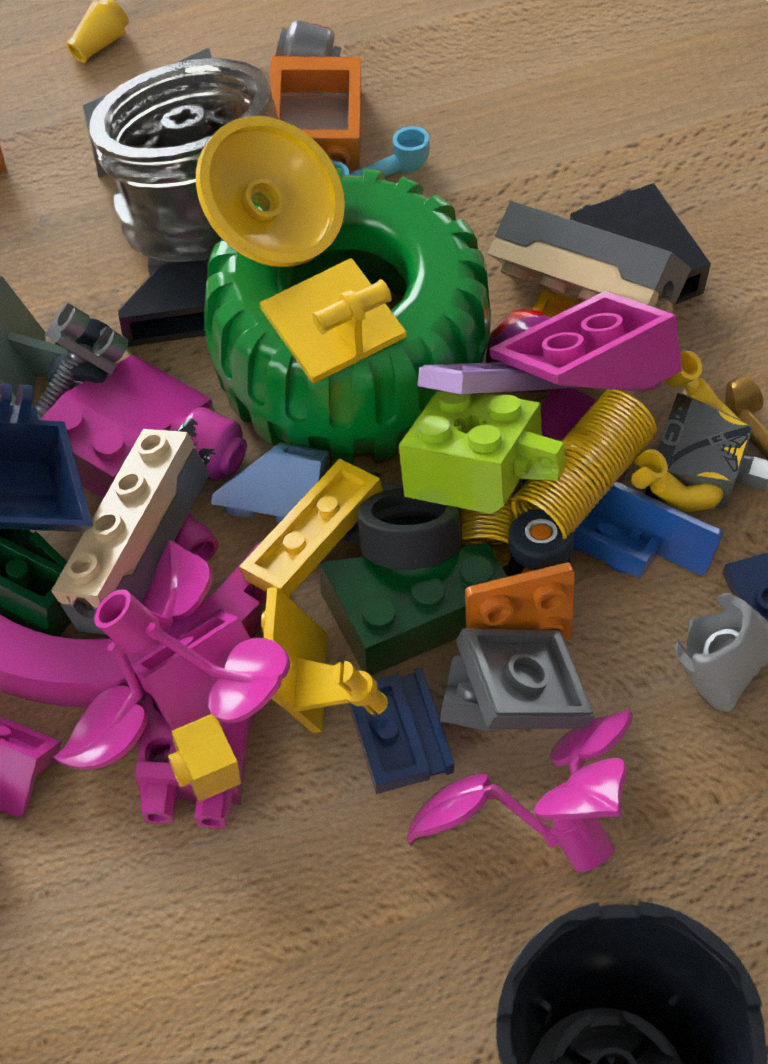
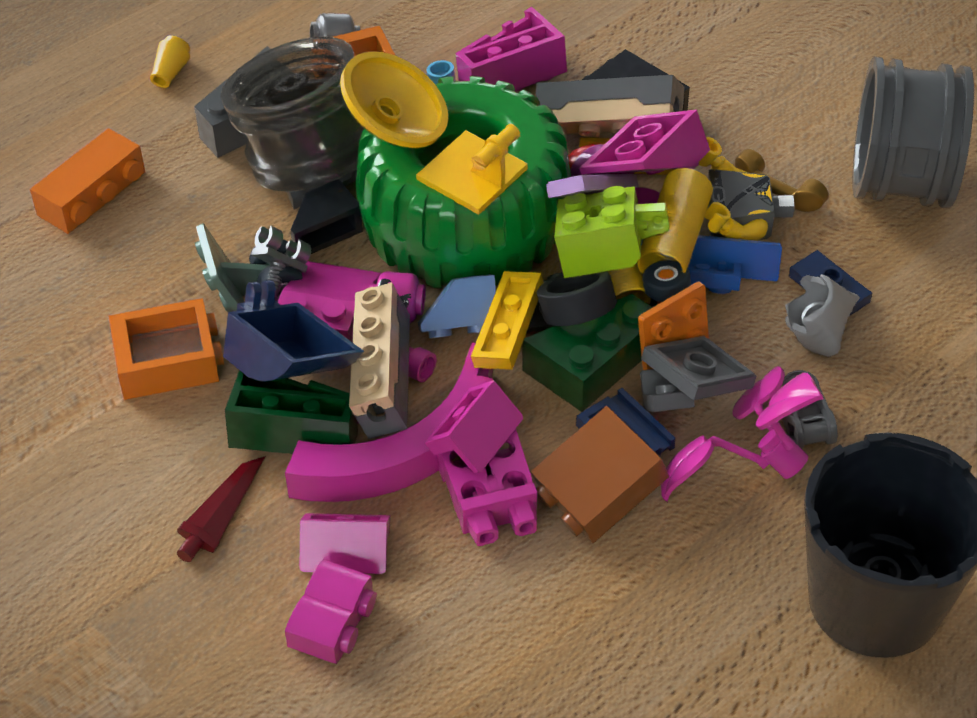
camera: 20 degrees left, 10 degrees down
(178, 588) = (427, 397): dark pink plant -> none
(204, 758) = (512, 476): yellow plate -> none
(311, 681) = (551, 416): yellow plate -> none
(327, 786) = (598, 475): none -> dark orange brick
(505, 152) = (518, 54): none -> dark pink wedge
(645, 790) = (813, 422): none -> dark grey piece

